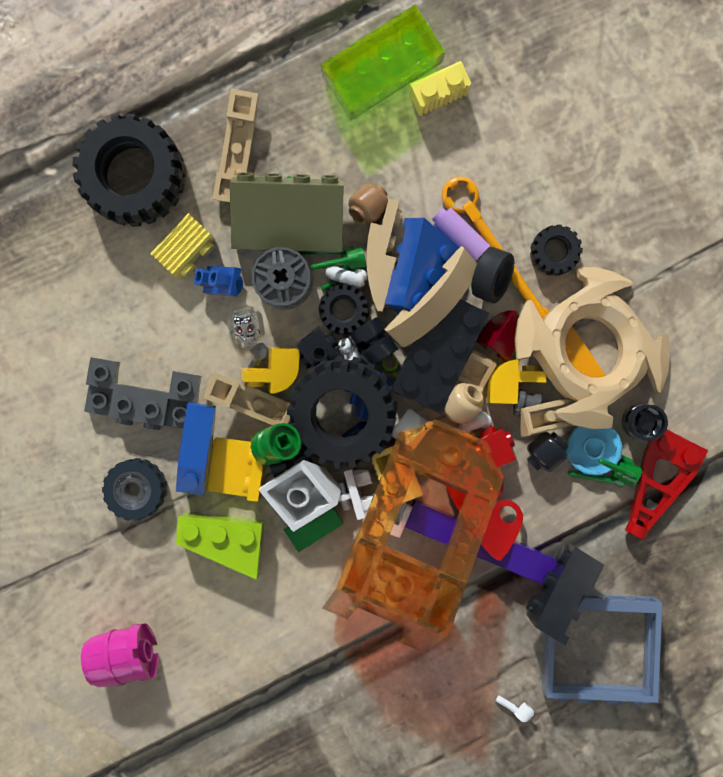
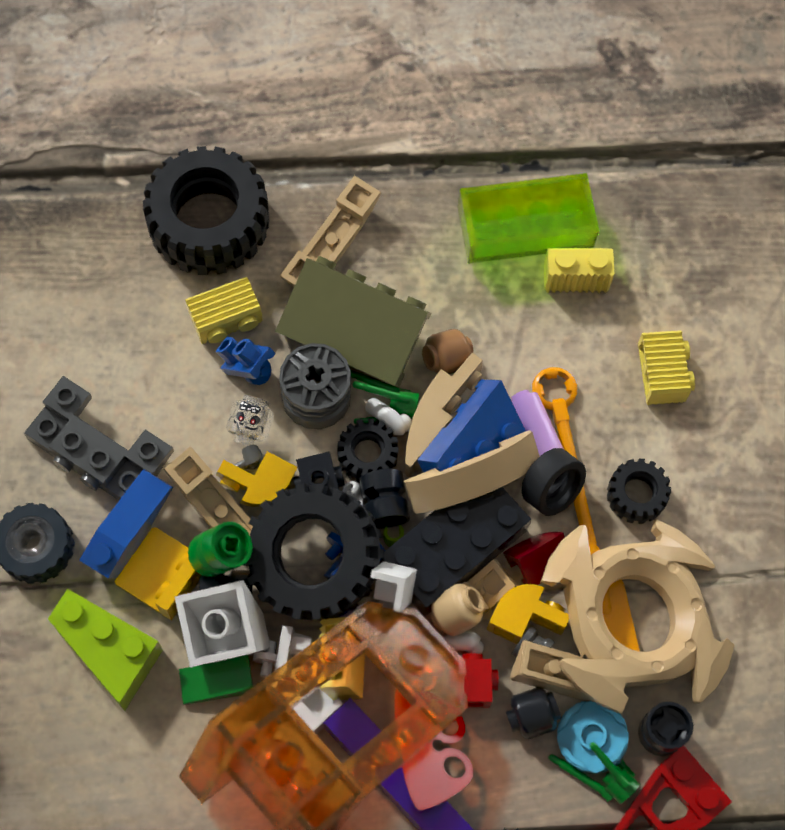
camera: 25 degrees right, 20 degrees down
(412, 409) = (394, 584): none -> white panel
(538, 141) = (665, 367): none -> light yellow brick

